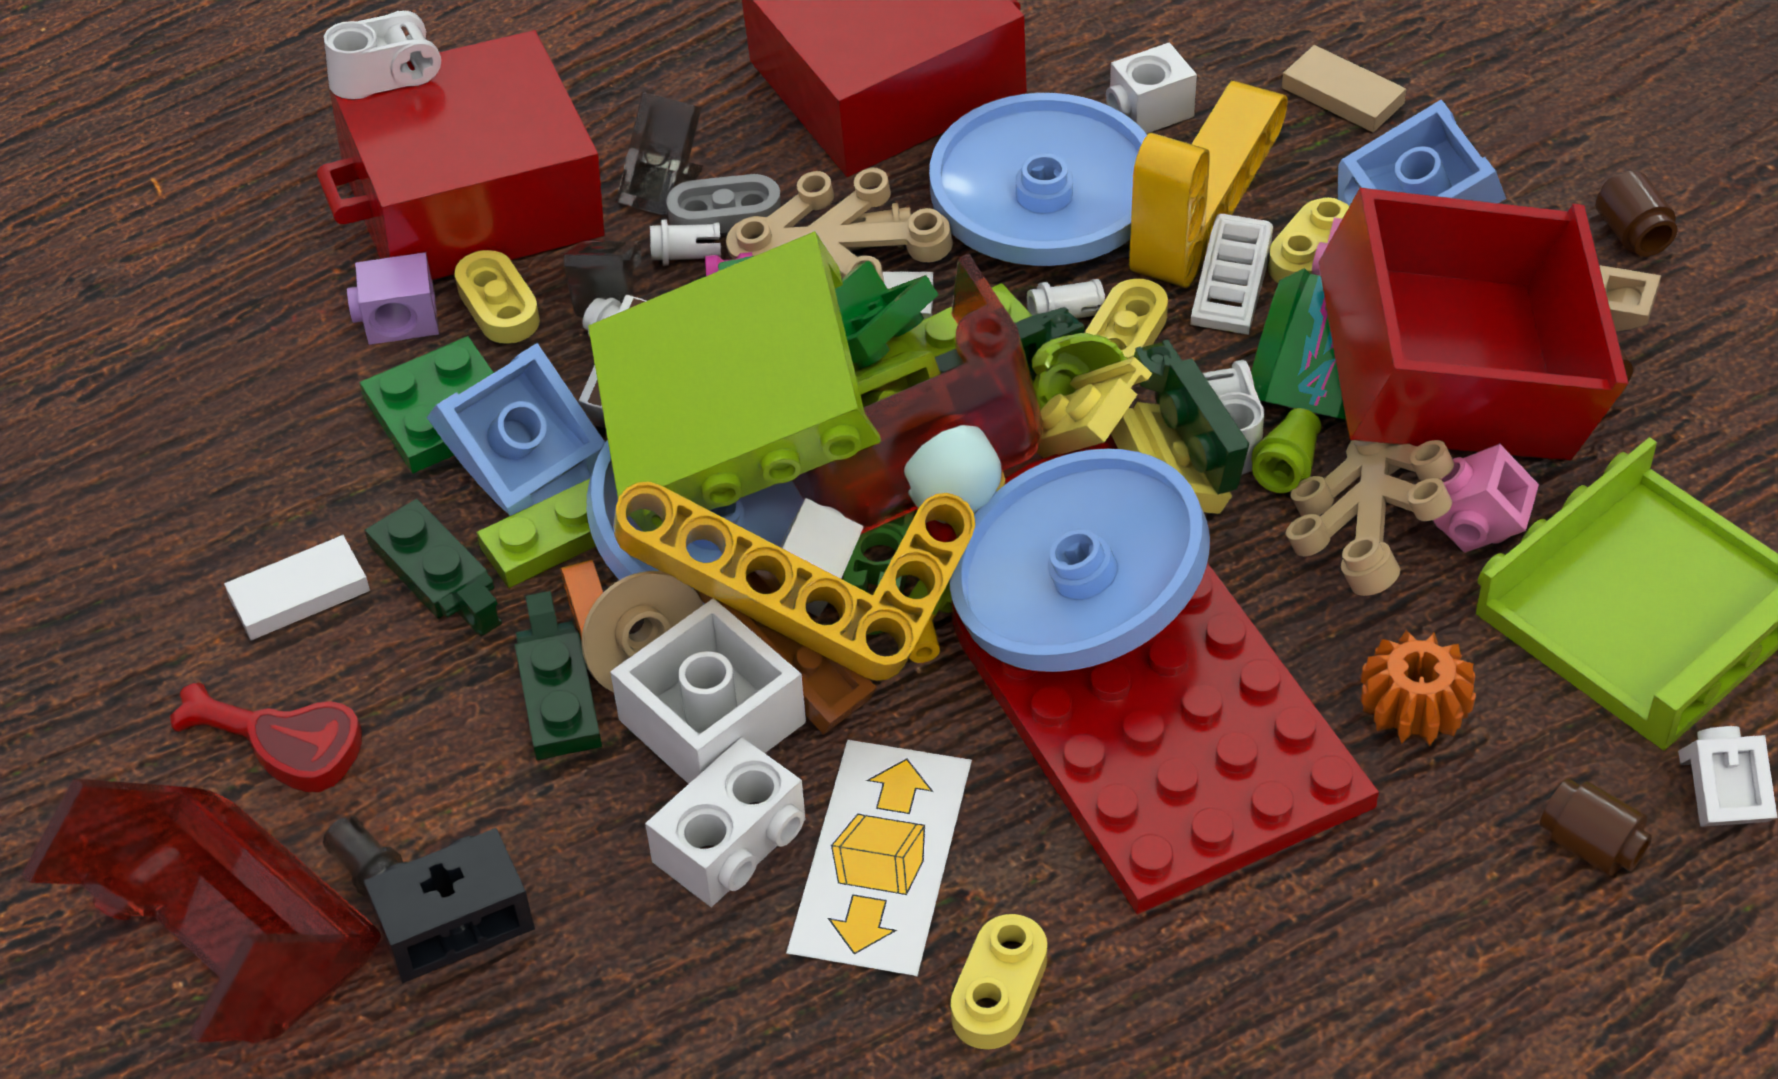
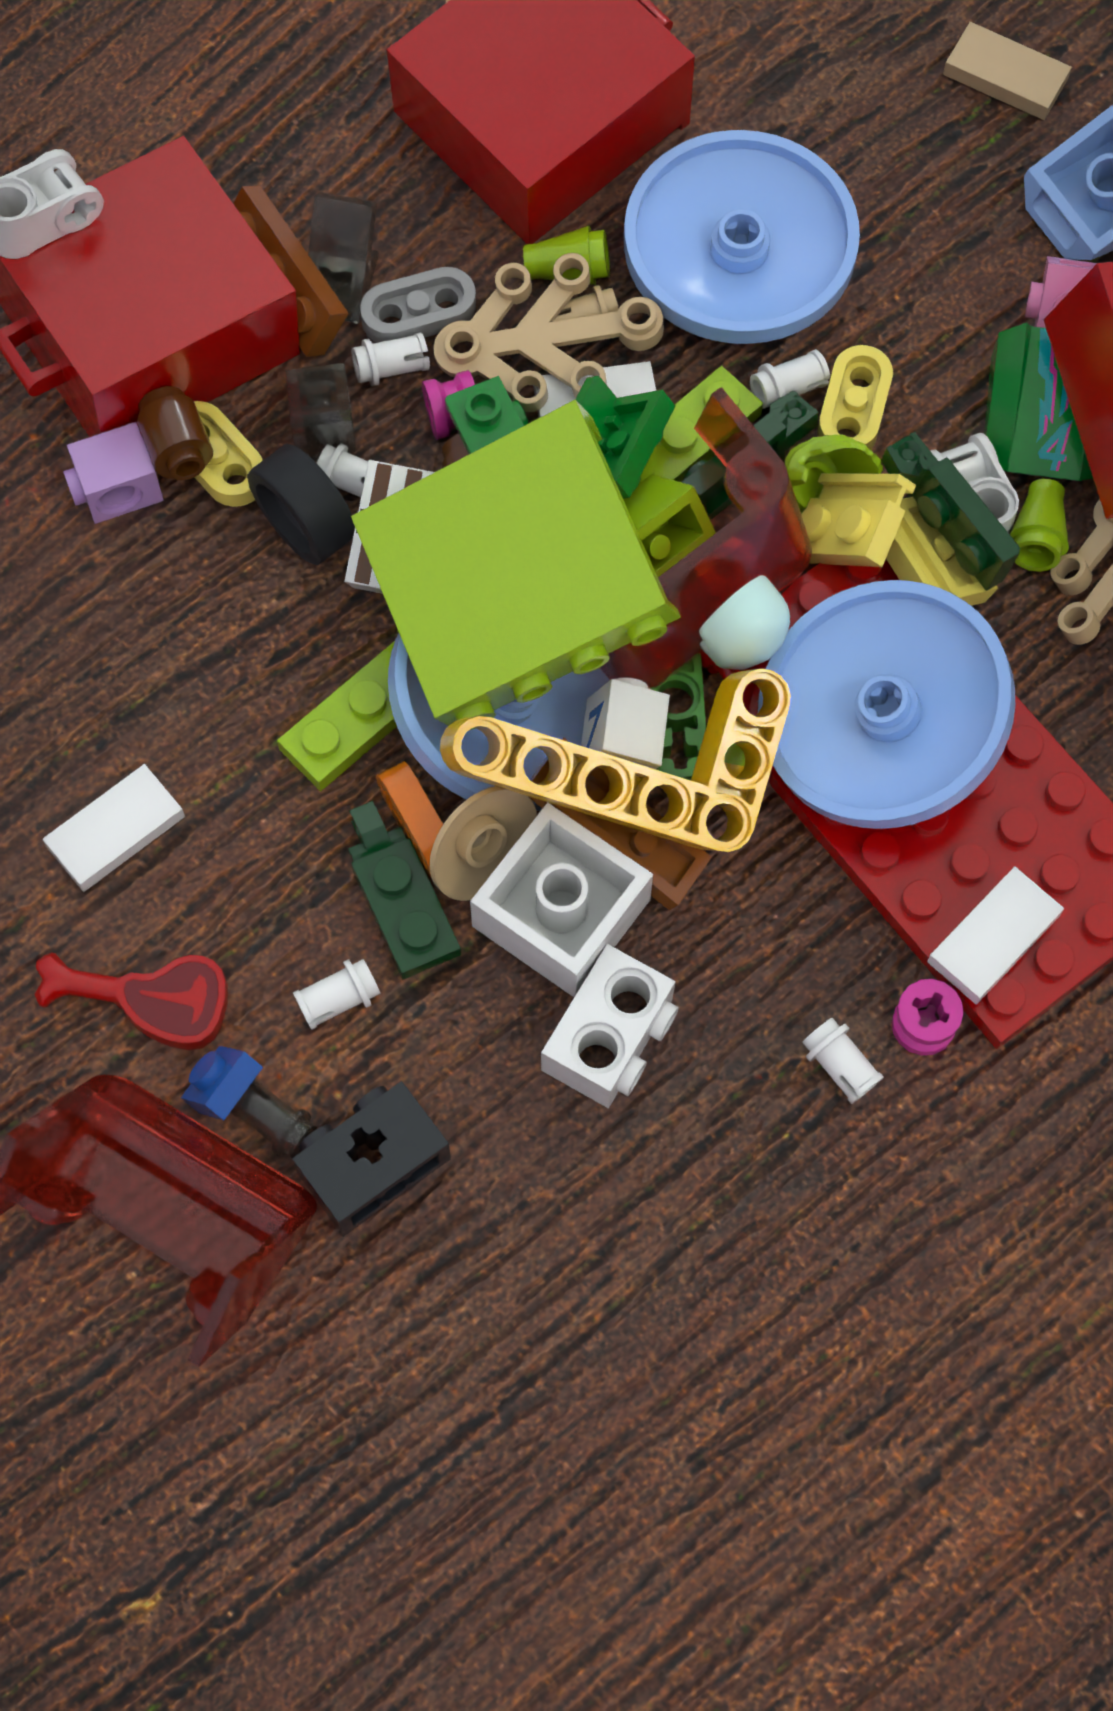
camera: 15 degrees left, 20 degrees up
(319, 809) = (220, 1081): none -> blue plate
(410, 391) = (193, 589): green plate -> none
(435, 566) = (244, 781): dark green hinge -> none
(456, 265) = (174, 433): none -> reddish brown brick
(464, 756) = (337, 993): none -> white pin
(520, 432) = (293, 624): light blue slope -> none
(559, 323) = (301, 503): none -> black tyre
(622, 182) = (318, 307): none -> dark orange plate
(880, 858) = (750, 1027): white sticker -> none
(902, 178) = (592, 245): none -> lime cone
(956, 878) = (842, 1059): none -> white pin
(1002, 975) = (892, 1140): light yellow plate -> none
(1069, 881) = (920, 1030): none -> dark pink wheel
(1149, 790) = (995, 935): none -> white tile
(1153, 88) = (820, 102): white brick -> none
(1187, 185) = (900, 214): yellow beam -> none
(1237, 241) = (944, 285): white slope -> none
(1299, 239) = (1013, 265): light yellow plate -> none

